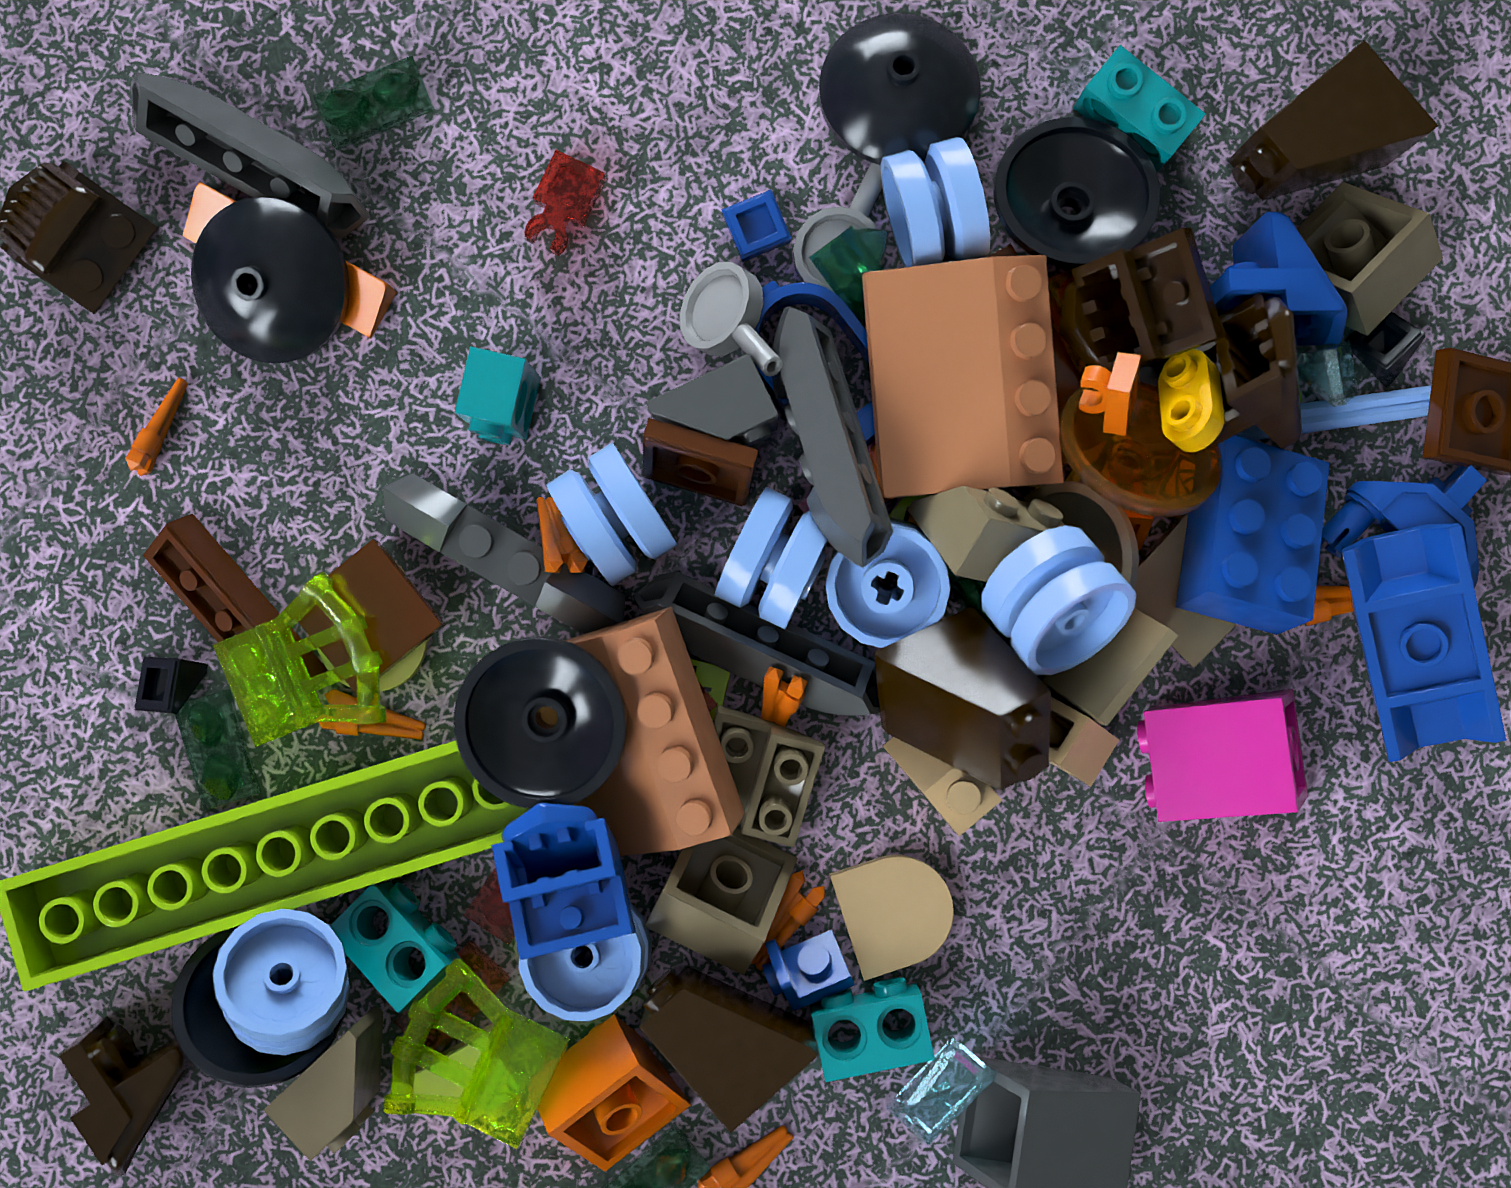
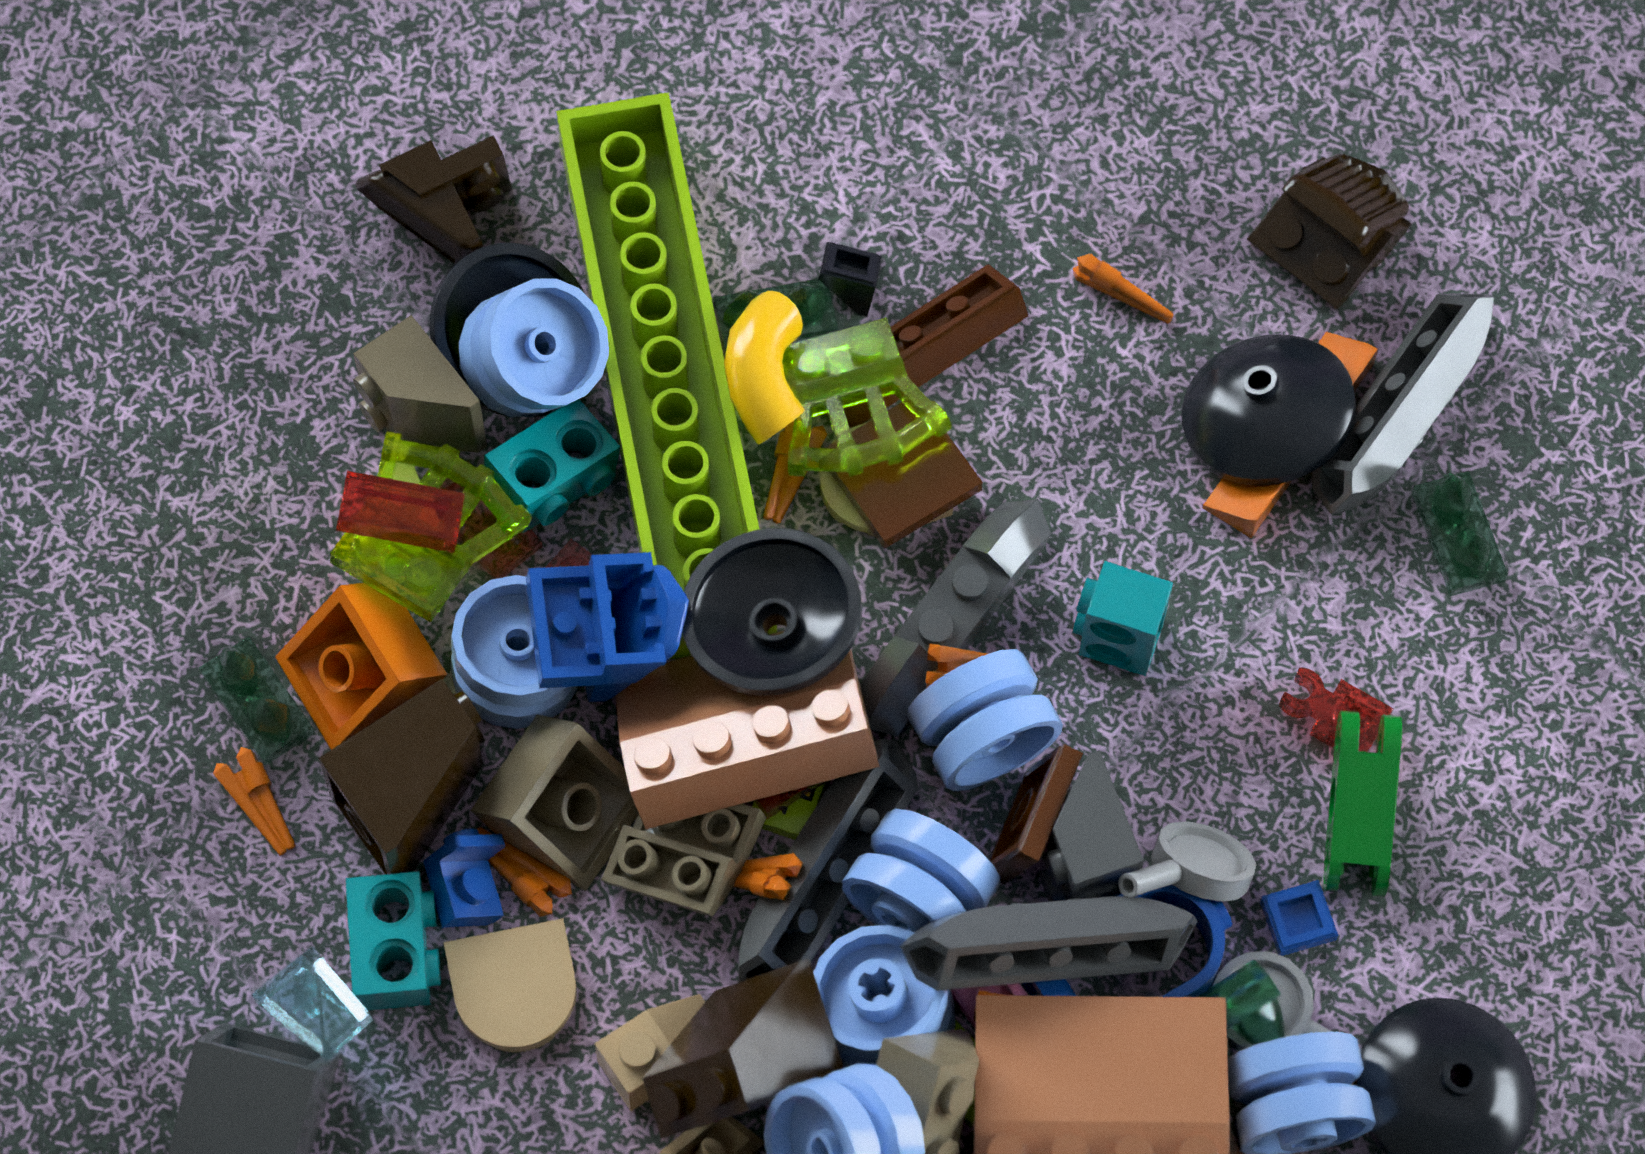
camera: 90 degrees right, 20 degrees down
(278, 765) = (756, 367): none -> yellow cylinder
(471, 1091) = (400, 511): none -> clear red tile
(650, 169) = (1362, 802): none -> green piece

